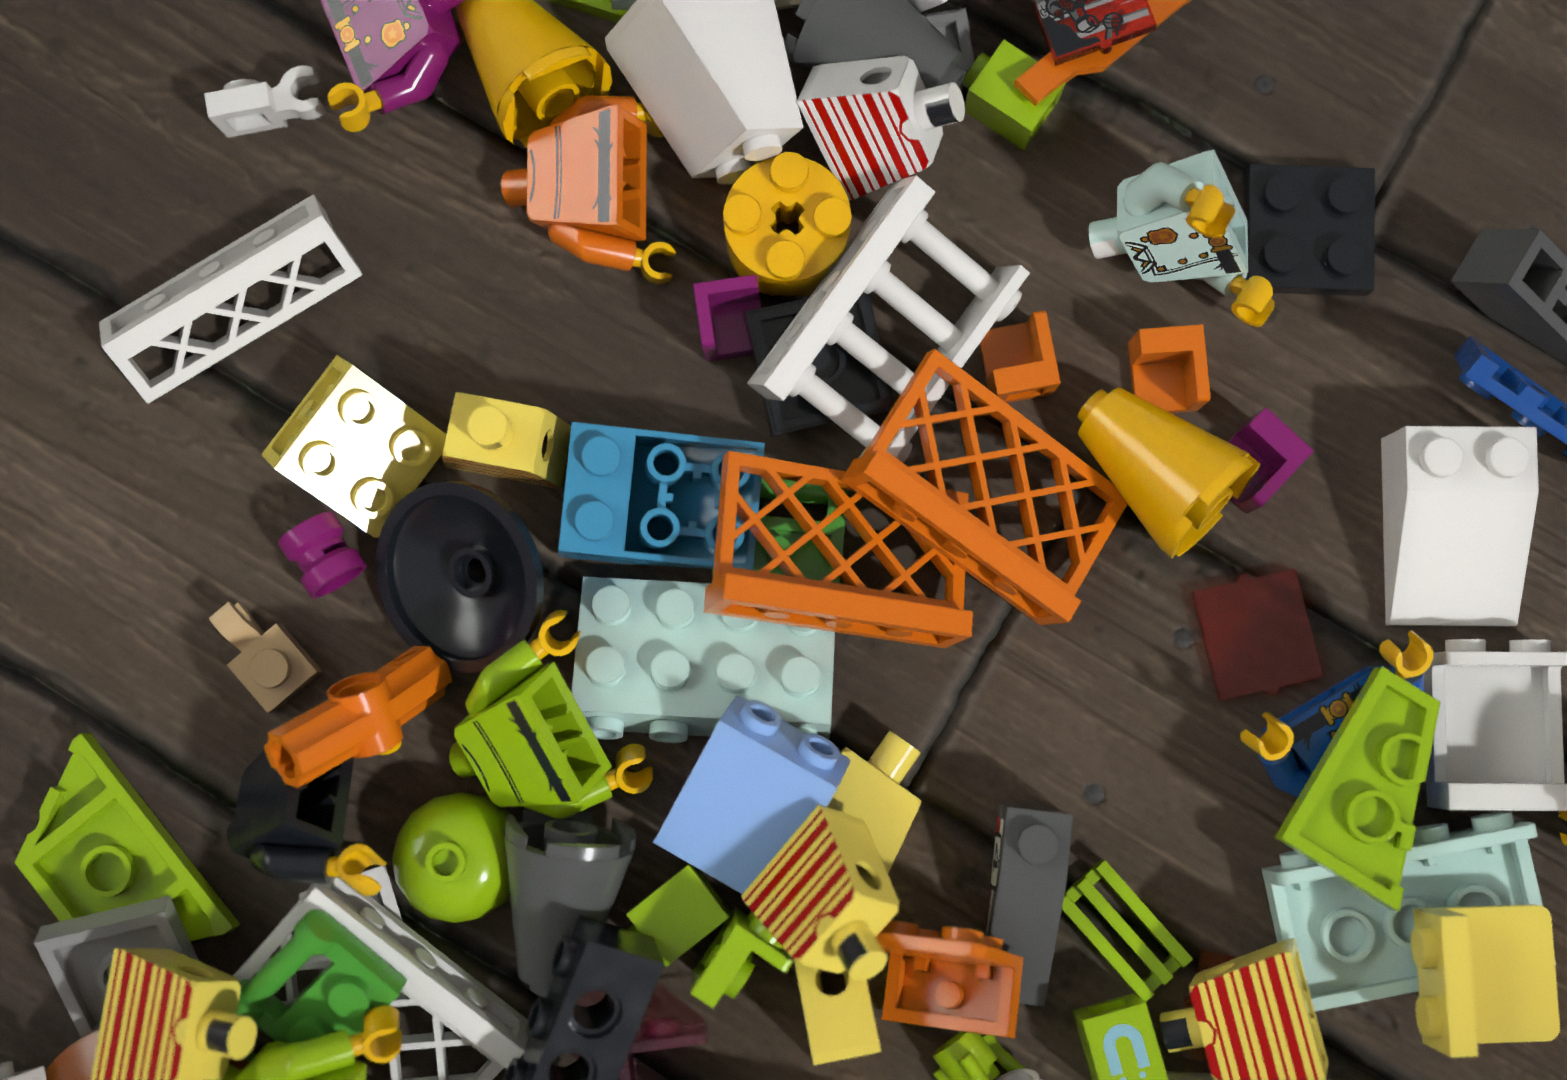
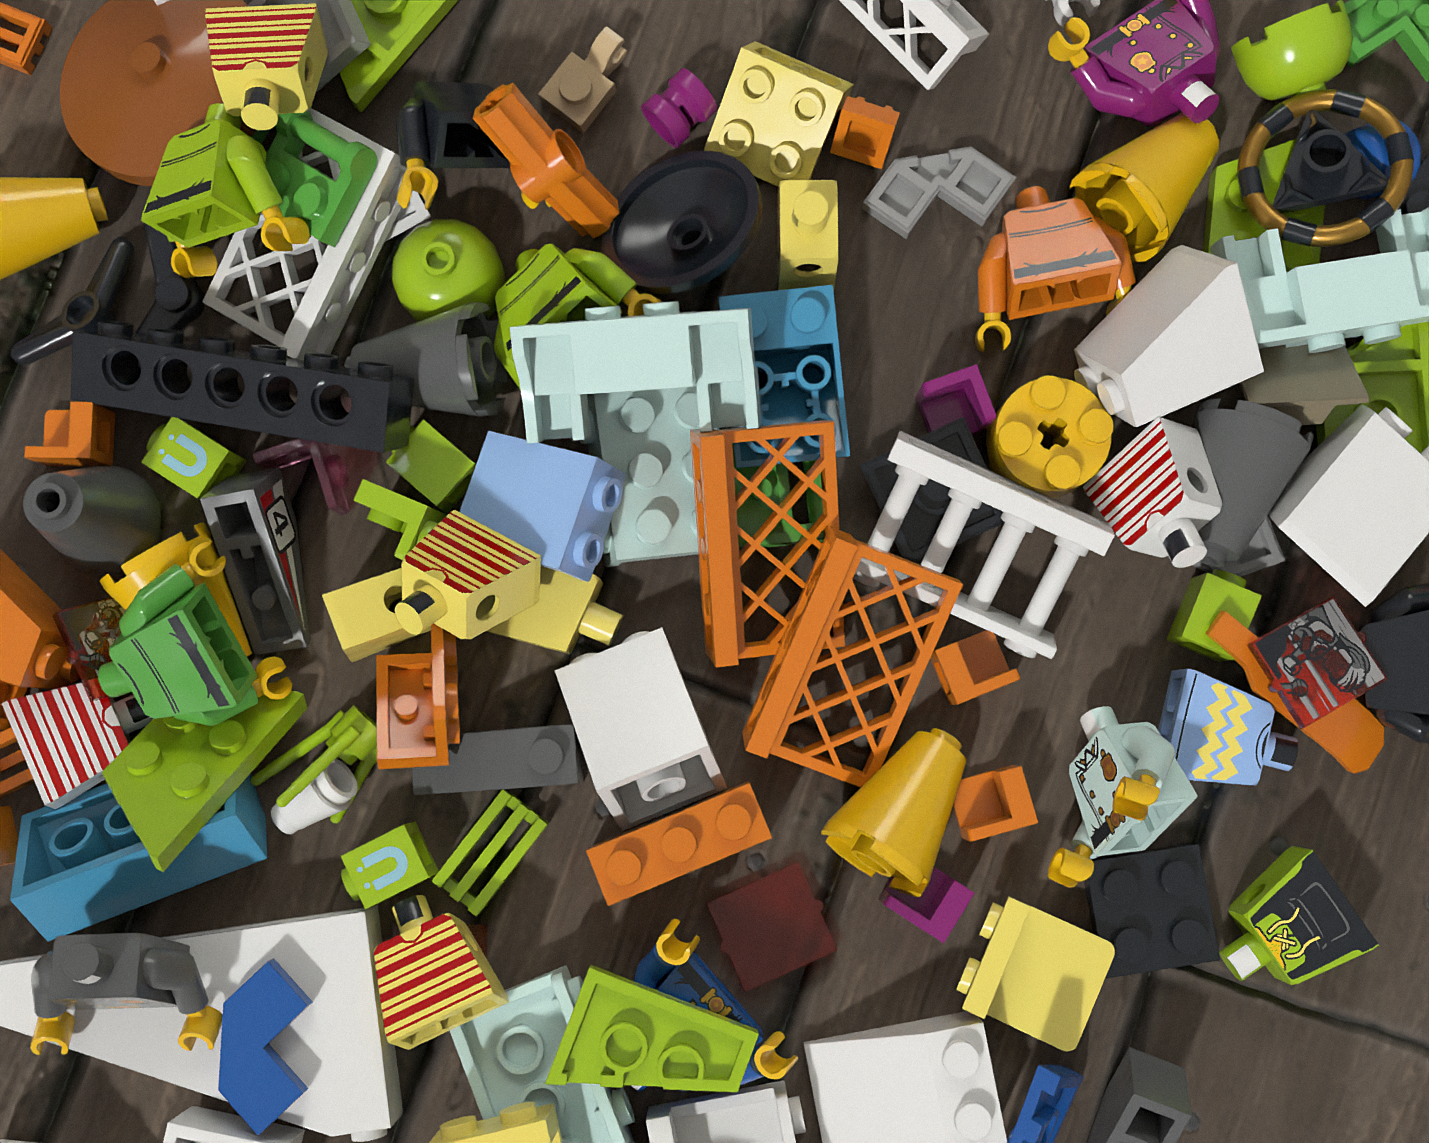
camera: 80 degrees right, 0 degrees up
(397, 352) = (864, 131): none -> orange tile
(468, 263) = (958, 177): none -> light grey tile
(612, 654) = (635, 353): none -> light aqua bracket
(1018, 736) = (639, 729): none -> white slope
(1137, 114) = (1221, 731): none -> light blue torso
(1162, 739) = (678, 843): none -> orange arch
(1349, 83) = (1295, 922): none -> torso
(1358, 361) = (1036, 973): none -> light yellow bracket

